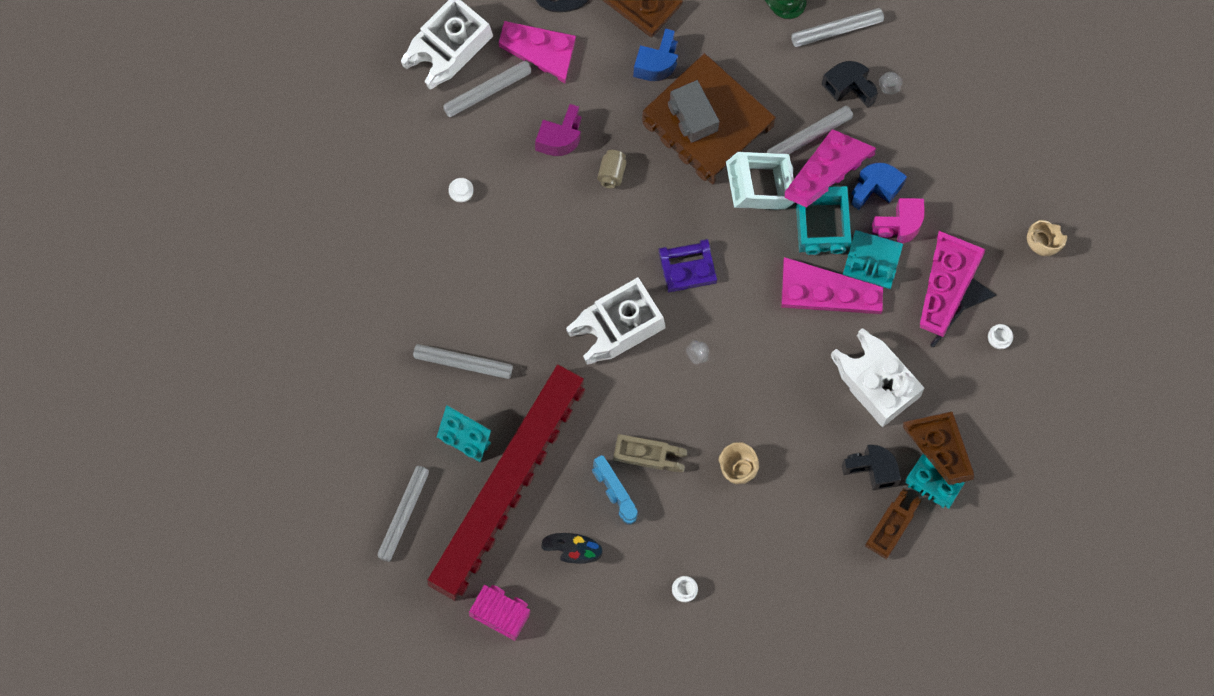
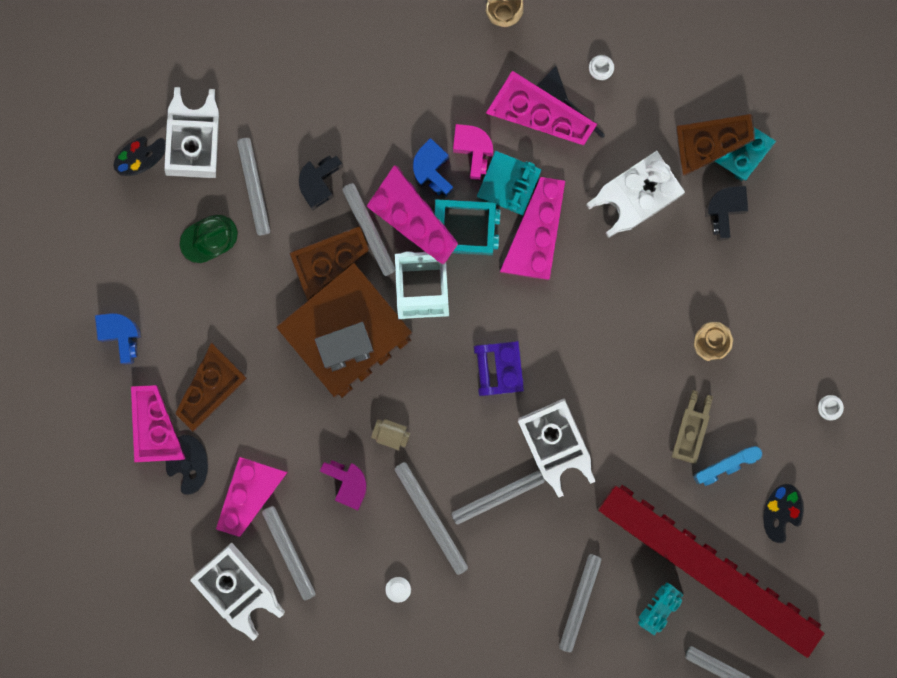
camera: 75 degrees left, 15 degrees up
(500, 612) = (840, 589): dark pink brick -> none
(533, 215) = (431, 518): none -> light grey axle
(559, 273) = (497, 497): none -> light grey axle
(654, 63) = (279, 378): blue brick -> none
(697, 352) = (592, 368): clear plate -> none
(775, 93) = (327, 259): none -> reddish brown wing
(890, 83) = (321, 140): clear plate -> none
(892, 526) = (785, 199): reddish brown hinge -> none

